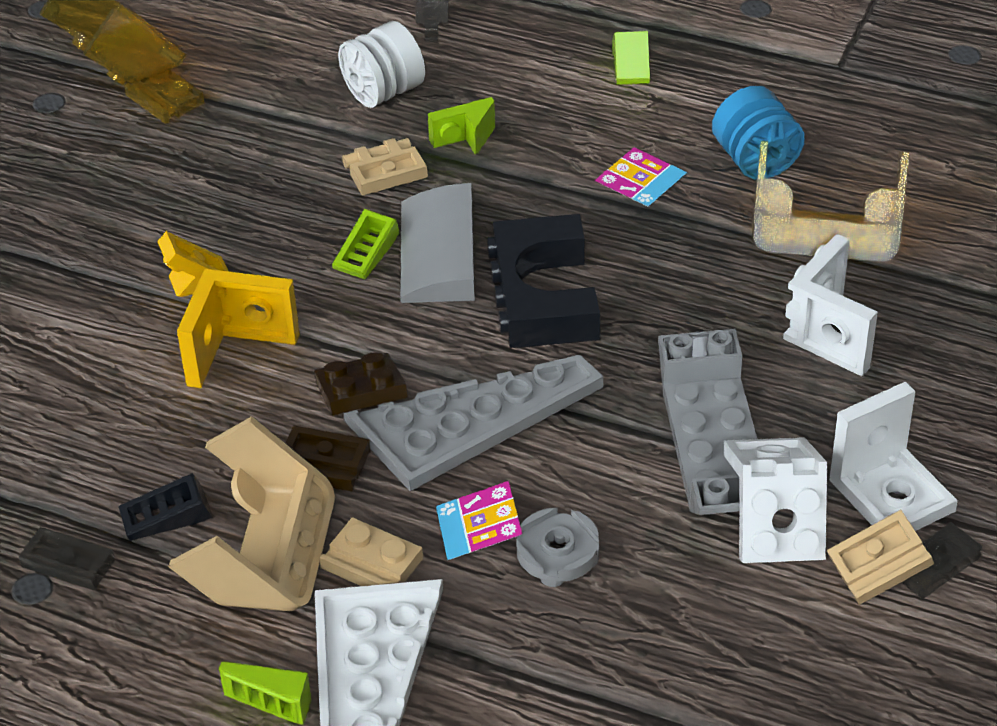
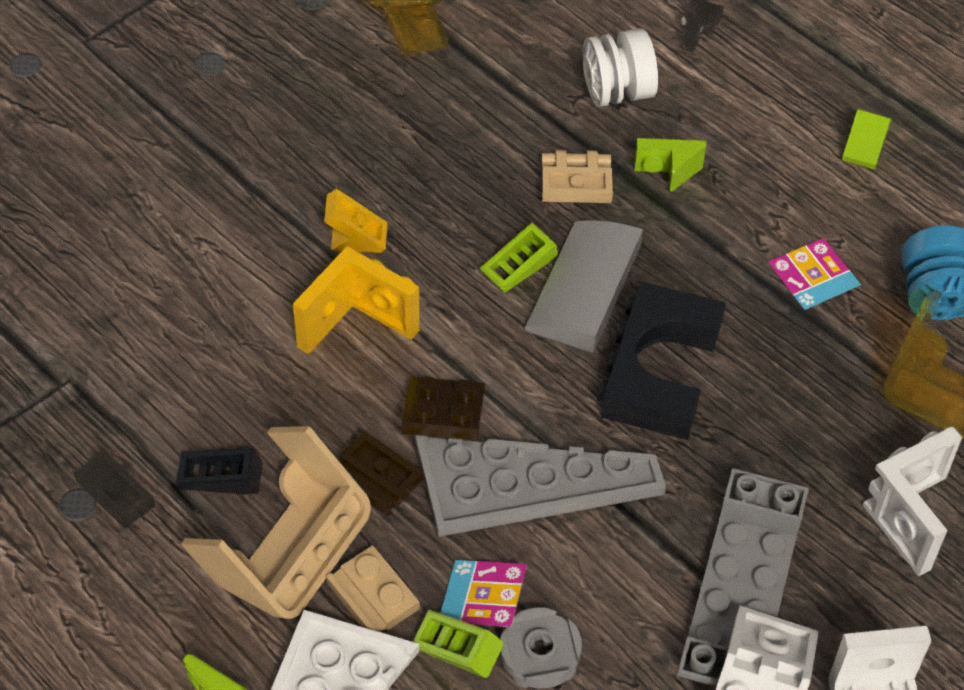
camera: 20 degrees right, 10 degrees up
(503, 570) = (479, 653): none -> lime slope

